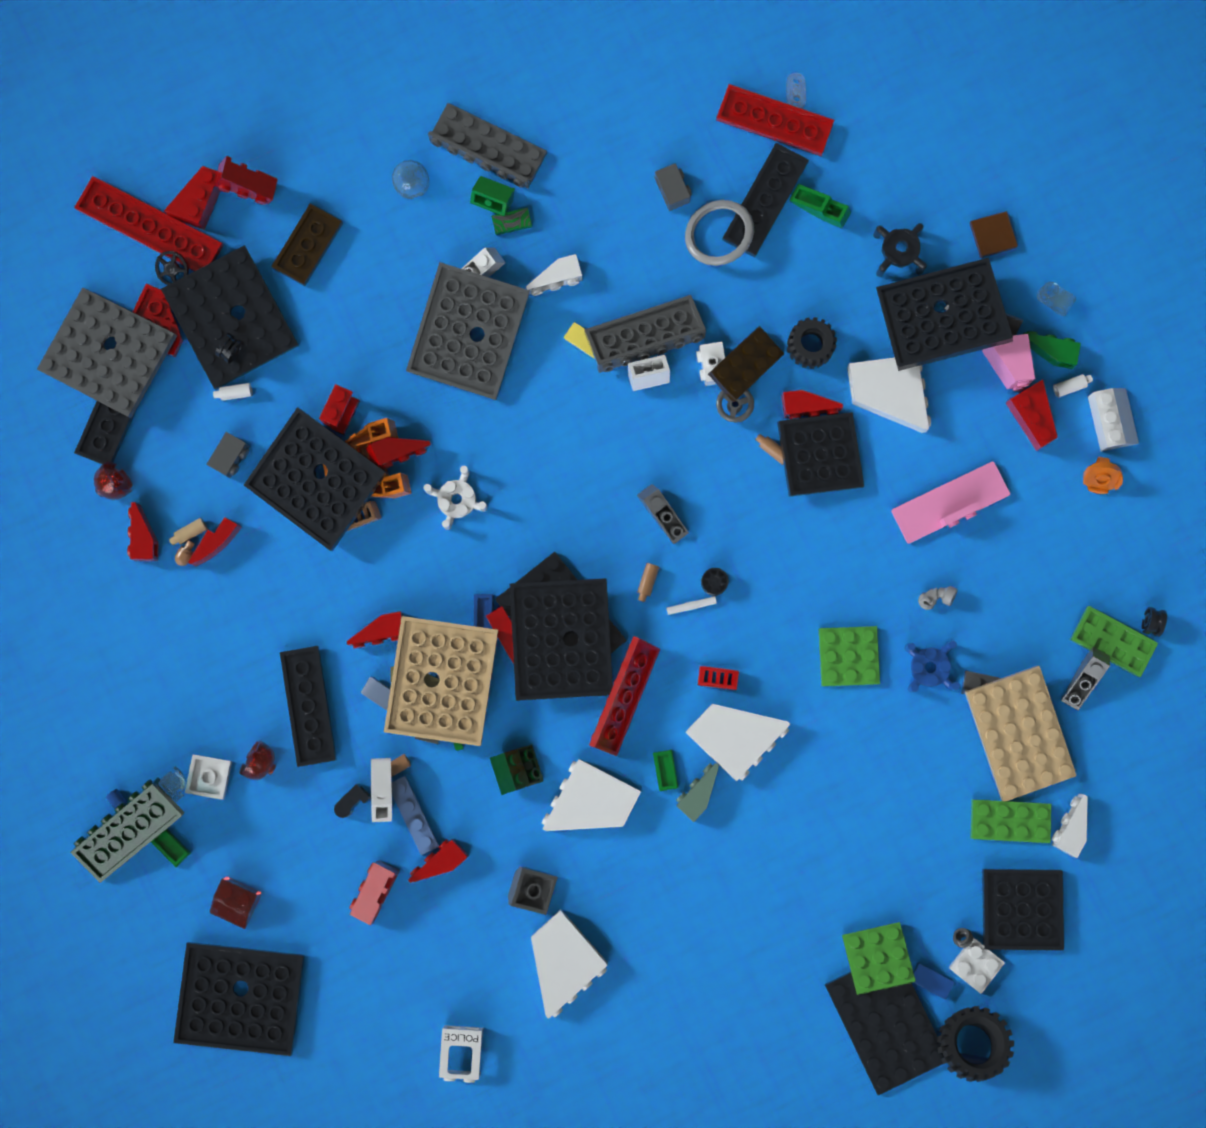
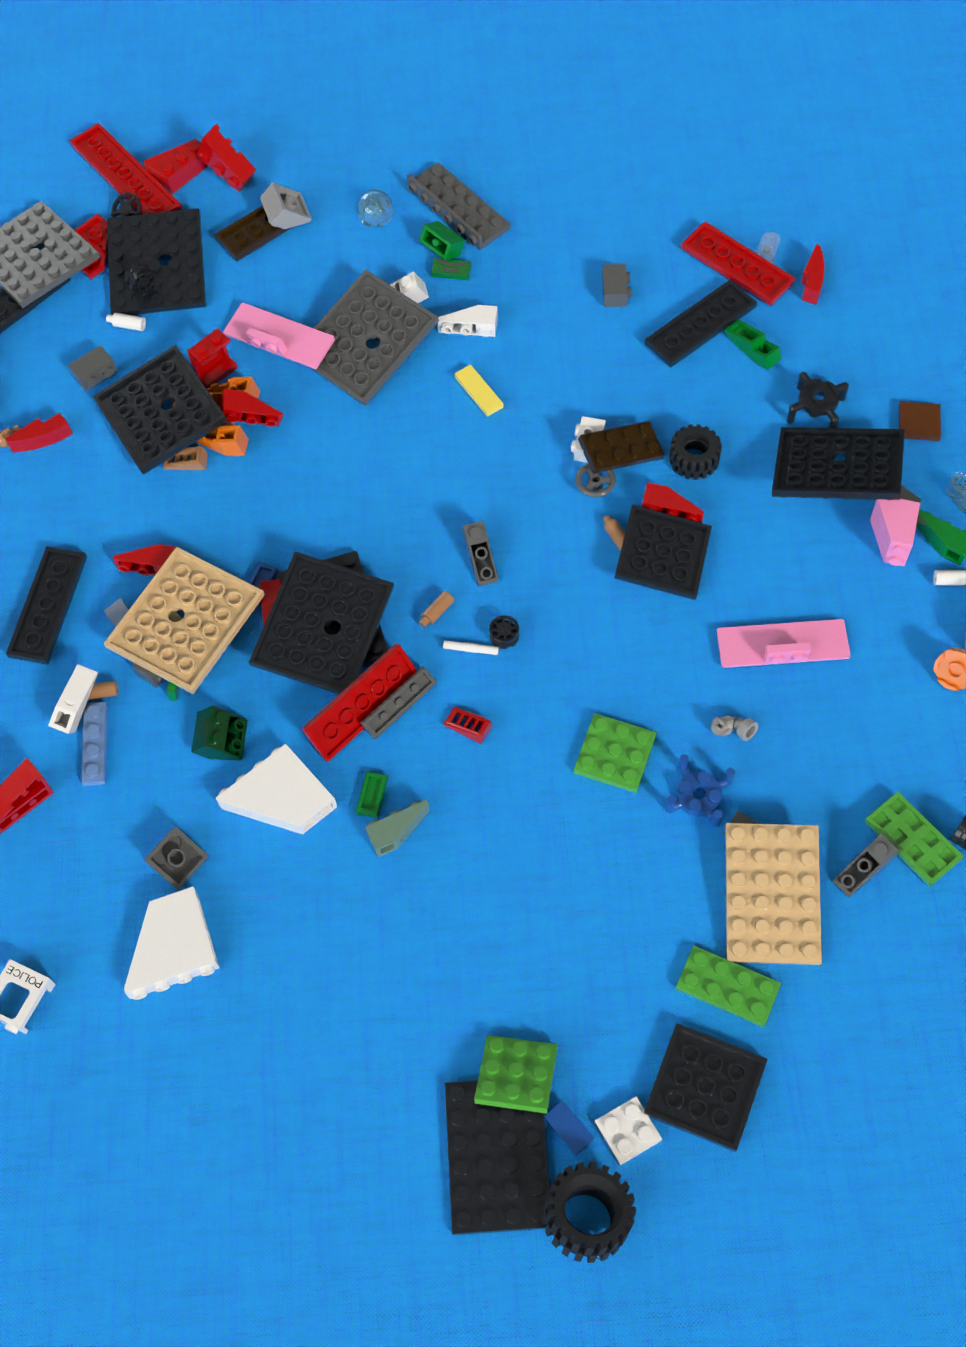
camera: 20 degrees right, 20 degrees down
(188, 532) = (20, 419): tan cylinder -> none
(327, 214) = (284, 207): none -> light grey slope
(350, 800) = (38, 705): black leg -> none
(386, 358) = (279, 335): none -> bright pink bracket
(444, 861) = (98, 796): red slope -> none
(451, 488) = (284, 464): white plate -> none
(645, 333) = (533, 394): dark grey bracket -> none
(649, 373) = (521, 425): white brick -> none
(653, 681) = (398, 702): none -> dark grey tile
(736, 737) = (460, 786): white slope -> none
(738, 252) = (649, 351): light grey wedge -> none
(850, 110) = (813, 276): none -> red slope
(890, 392) = (759, 520): white slope -> none
(962, 932) = (623, 1090): dark grey plate -> none
(1034, 415) = (902, 589): red wedge -> none
(1073, 831) = (793, 1025): white slope -> none

